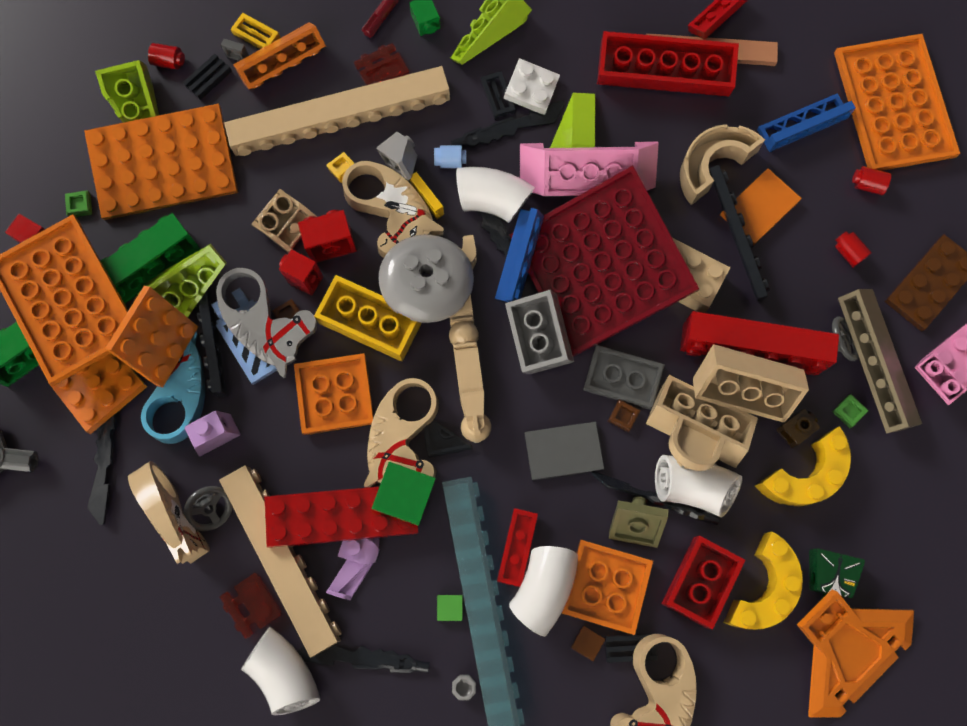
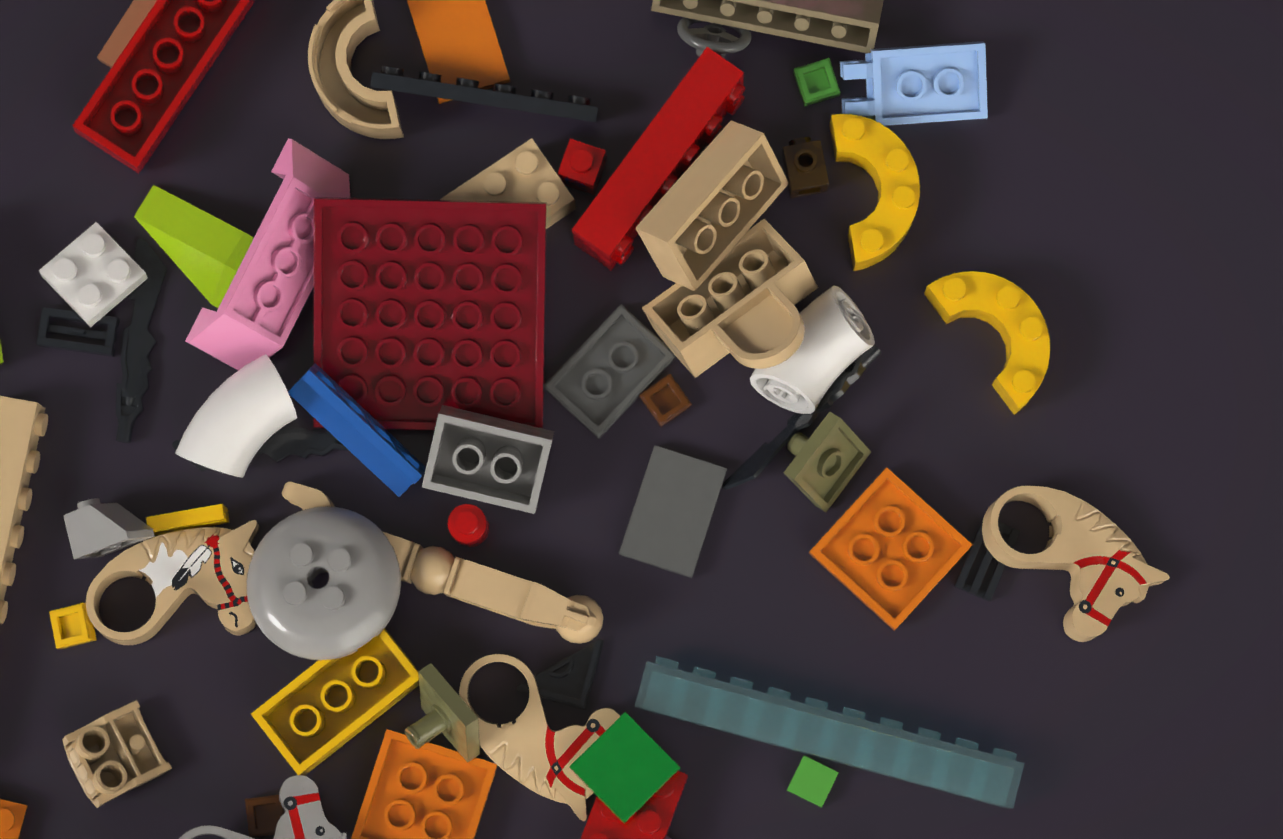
camera: 60 degrees left, 5 degrees up
(300, 272) = (216, 765): red brick -> none
(327, 236) = (179, 698): red brick -> none
(384, 378) = (444, 714): none -> olive tile
(449, 156) = (143, 454): light blue brick -> none
(464, 687) = (928, 813): light grey tile -> none
(497, 341) = (468, 525): none -> red brick
(517, 547) = (776, 645): red plate -> none
(545, 588) = (851, 634): white brick -> none
(587, 643) = (952, 614): reddish brown tile -> none
(703, 582) = (948, 414): red brick -> none
(730, 303) = (582, 166): none -> red brick
(835, 572) = (1026, 234): dark green torso -> none
(850, 650) = (1131, 266): orange plate -> none
(886, 471) = (920, 83): none -> light blue tile

